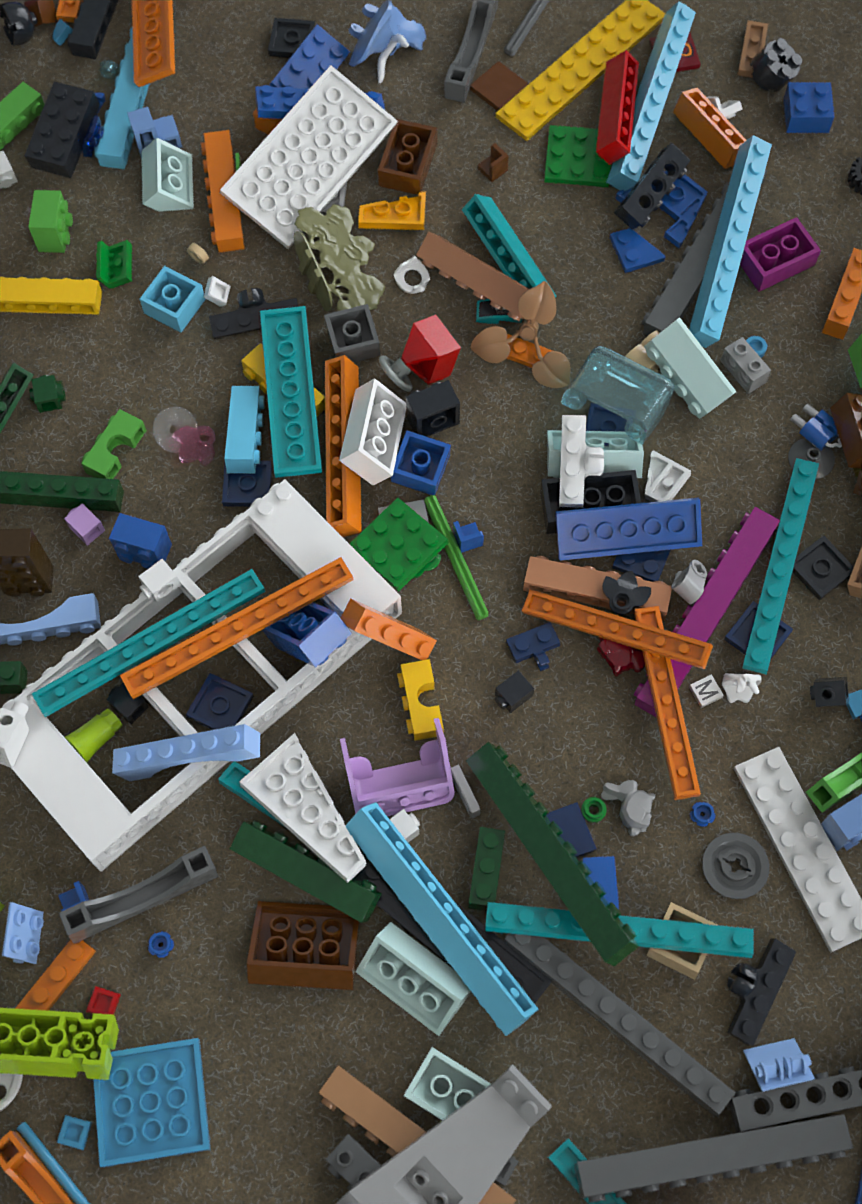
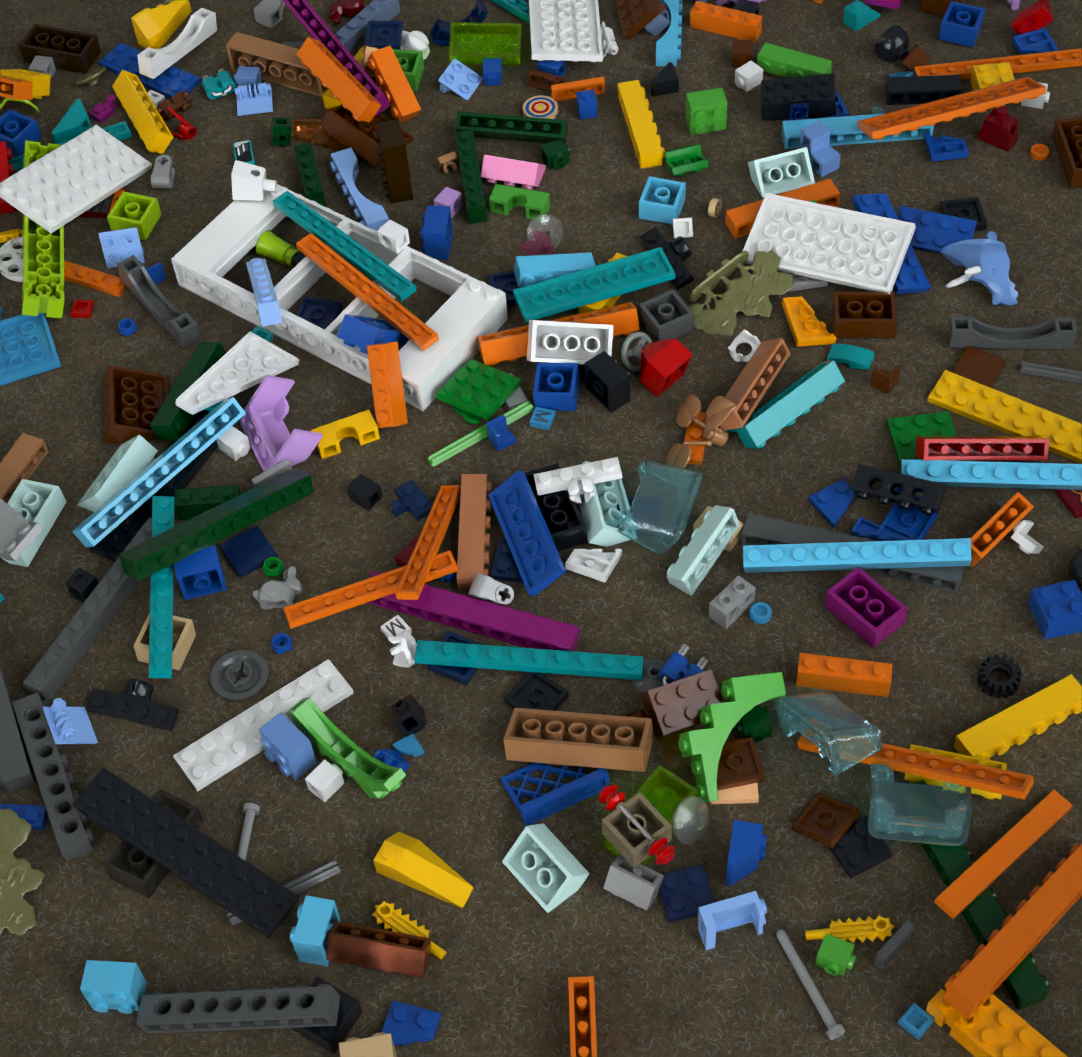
camera: 80 degrees right, 15 degrees down
(9, 514) = (445, 161): none -> medium nougat tile
(57, 442) = (512, 171): none -> bright pink slope
(189, 24) = (945, 147): none -> blue wing
(451, 490) = (542, 418): none -> dark azure tile
(452, 186) = (853, 355): none -> teal slope
(579, 1033) = (81, 584): none -> black brick
(625, 590) = (467, 542): black plate -> none

